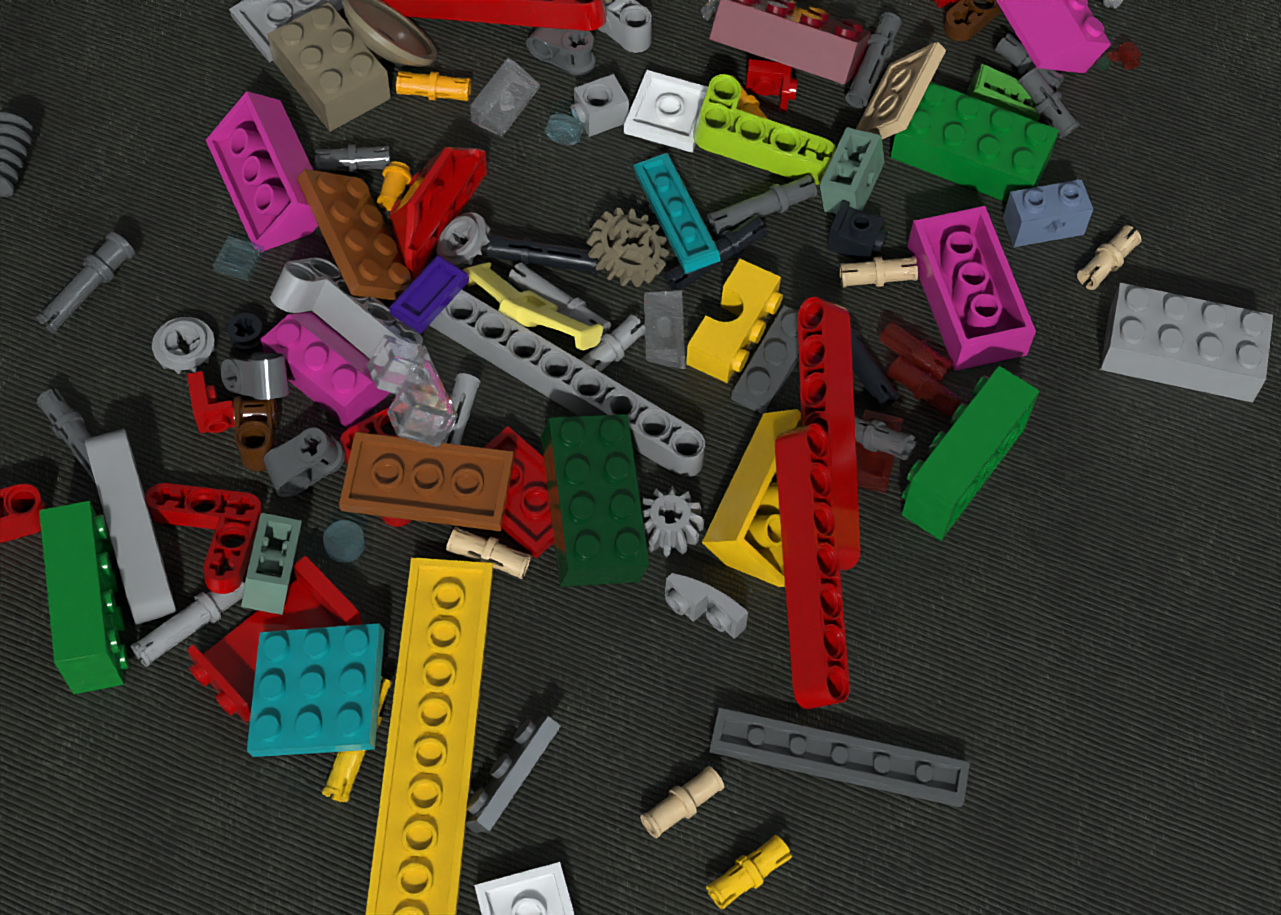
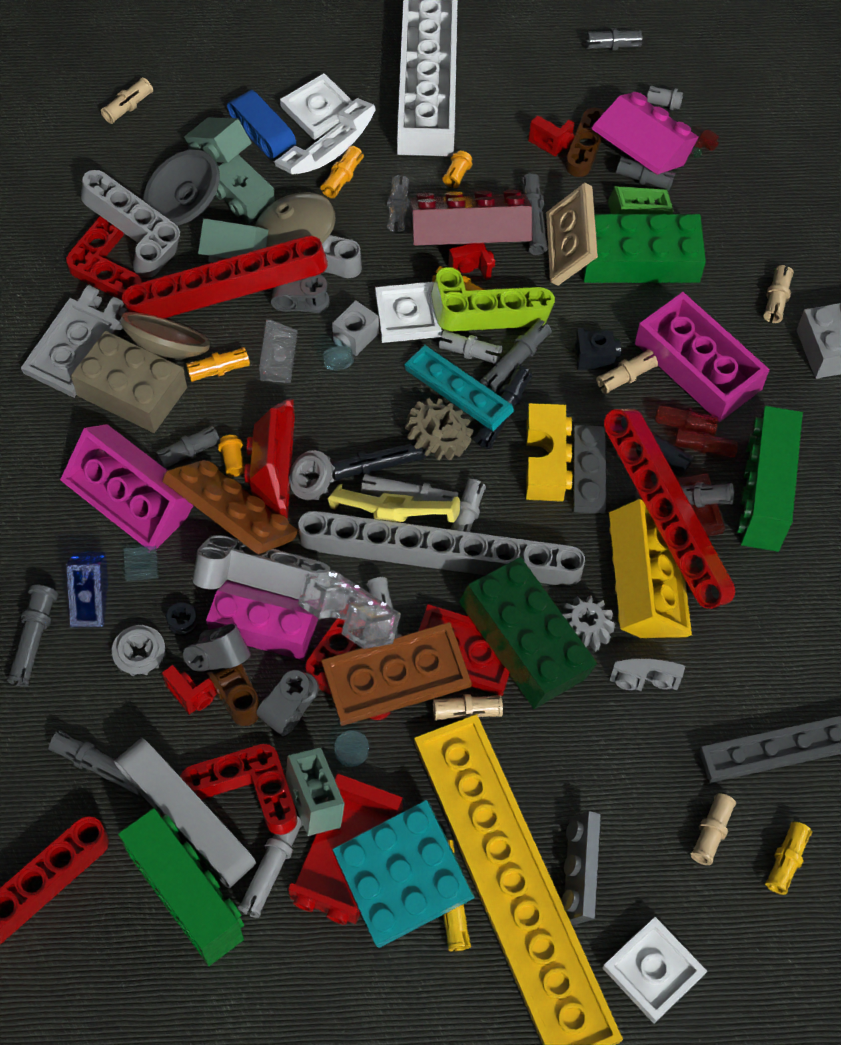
camera: 25 degrees left, 0 degrees up
(166, 259) = (87, 588): none -> clear blue slope
(429, 294) = (316, 528): dark purple tile -> none
(665, 328) = (500, 479): clear slope -> none
(716, 175) = (470, 347): none -> light grey pin
(811, 567) = (713, 612): red beam -> none
(852, 170) = (570, 303): sand green brick -> none
(1047, 213) = (721, 279): sand blue brick -> none
(1048, 102) = (675, 196): dark grey pin -> none

